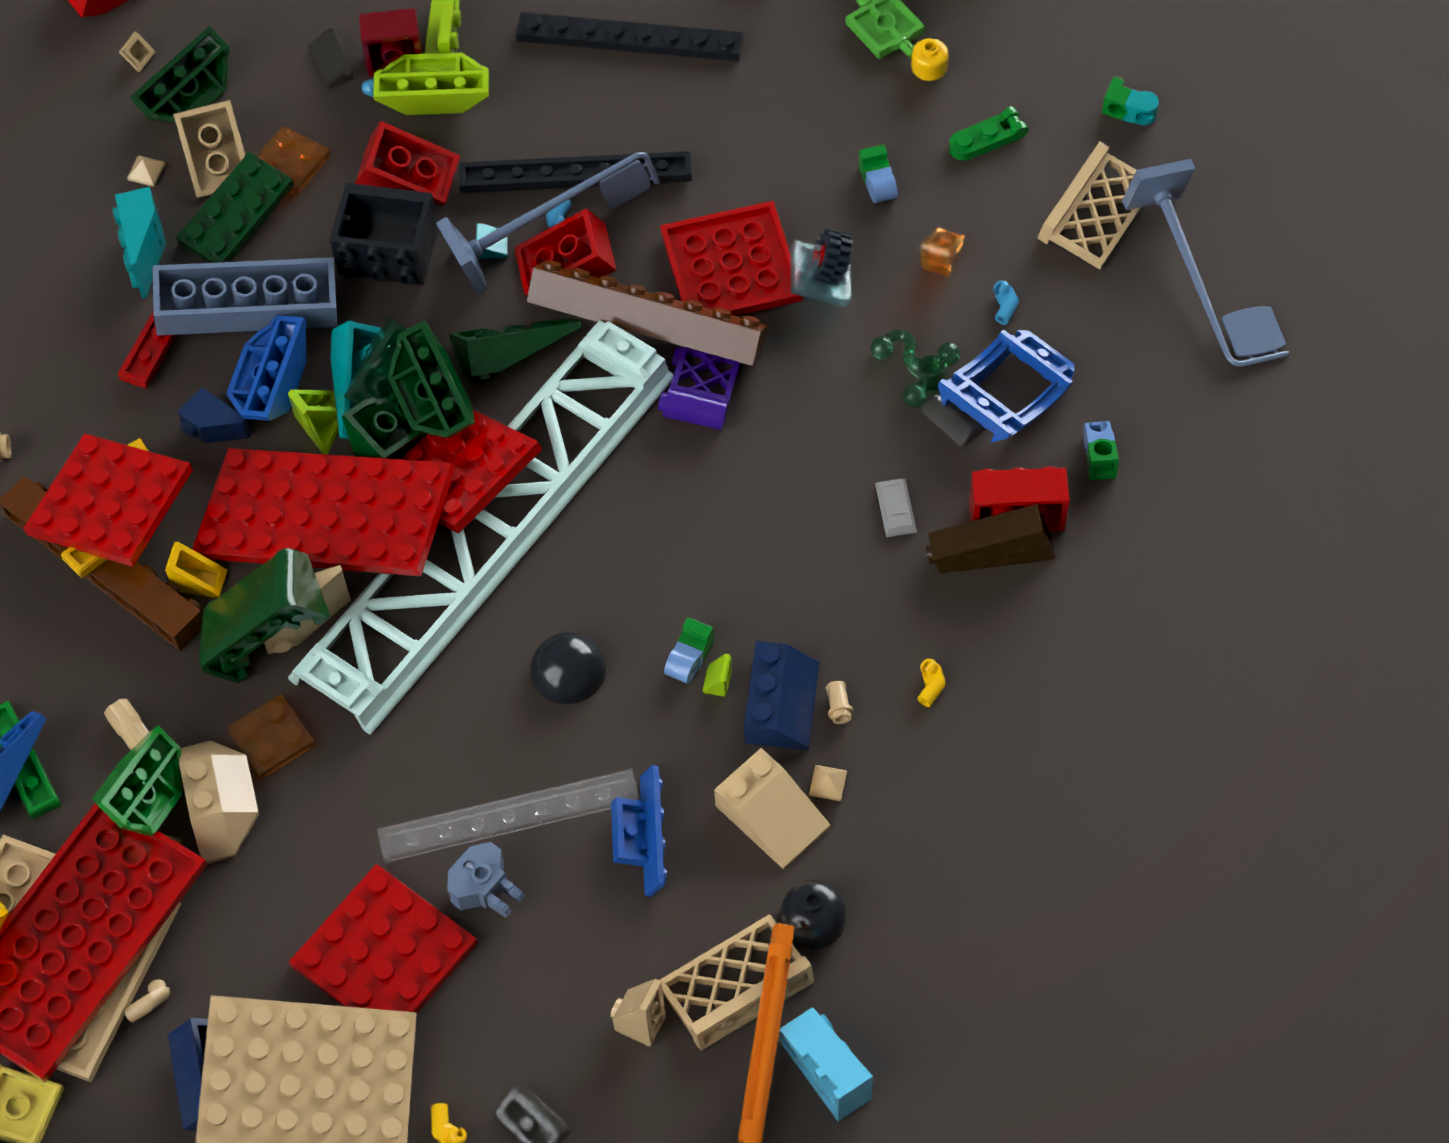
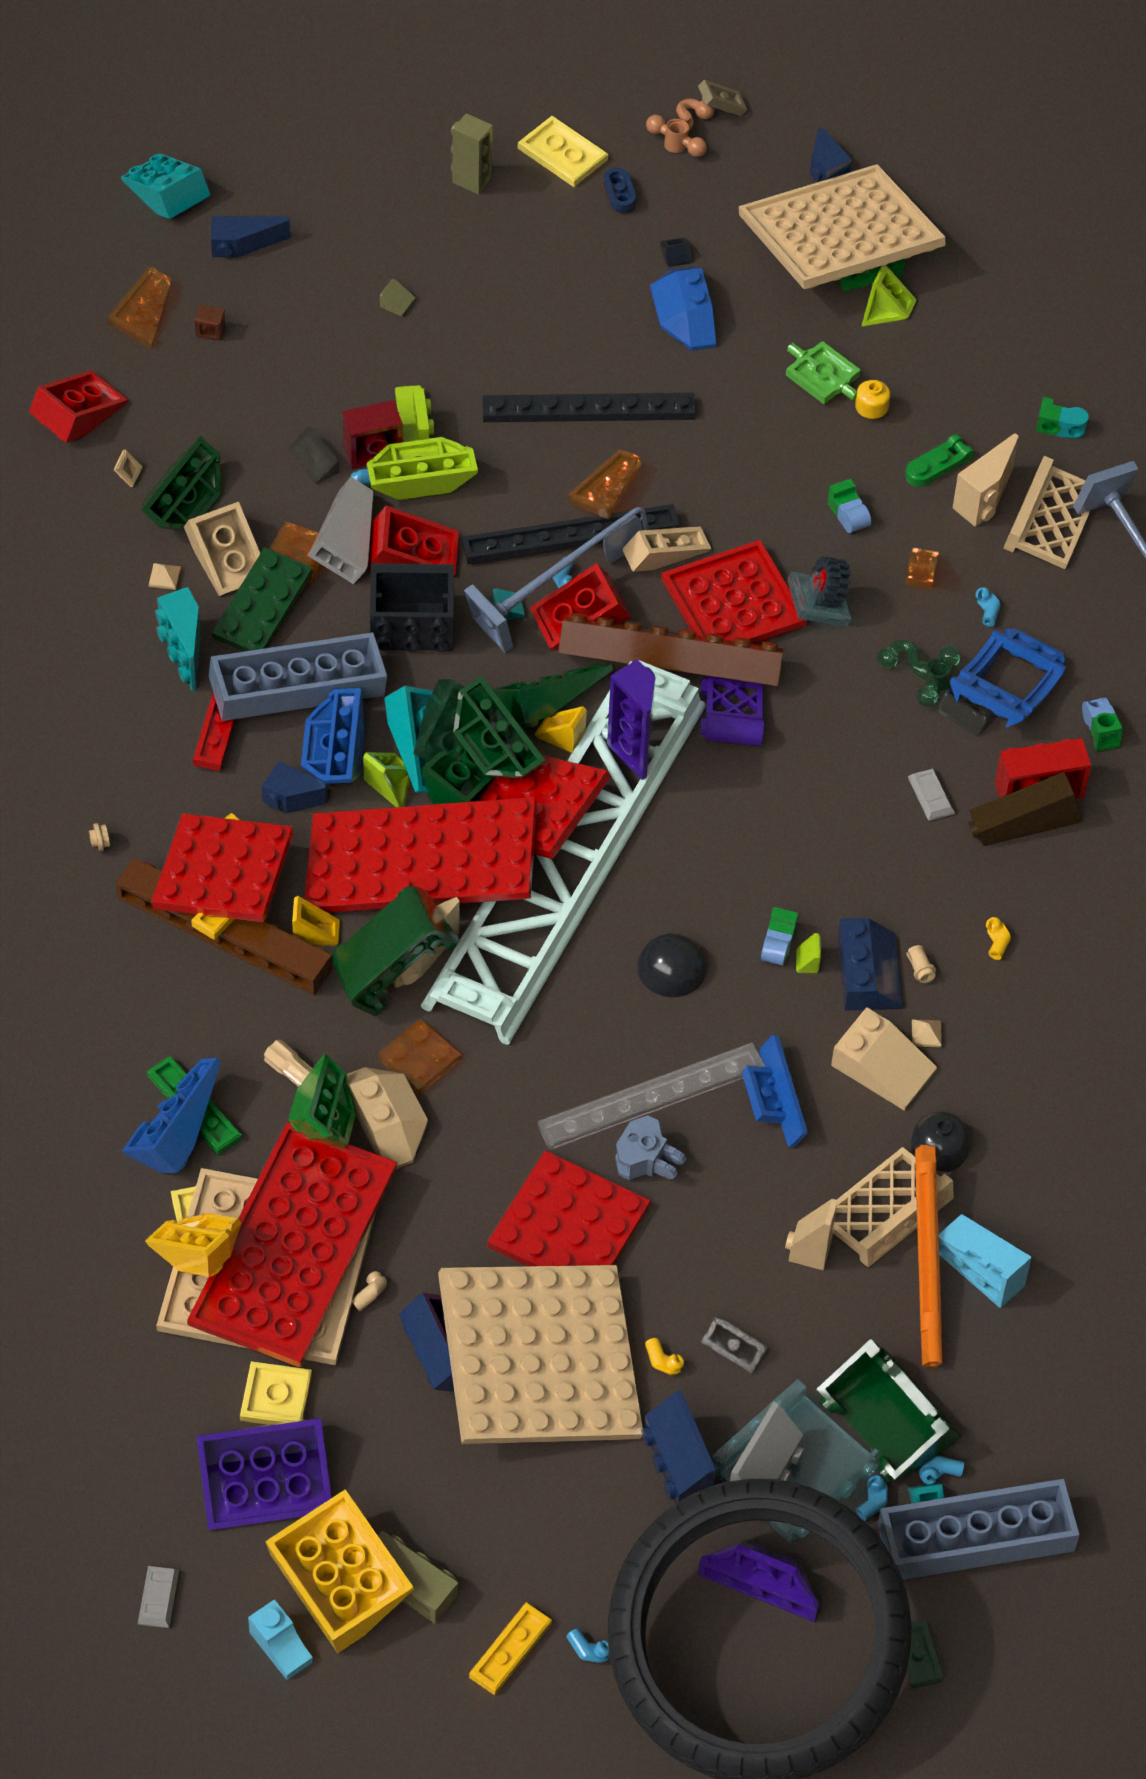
camera: 15 degrees left, 5 degrees down
(337, 146) = (345, 534): none -> light grey slope
(515, 386) = (563, 728): none -> yellow slope
(574, 384) = (632, 715): none -> dark purple slope
(626, 122) = (606, 485): none -> clear orange wing
(670, 197) = (664, 547): none -> tan slope
(1030, 162) = (984, 481): none -> tan slope

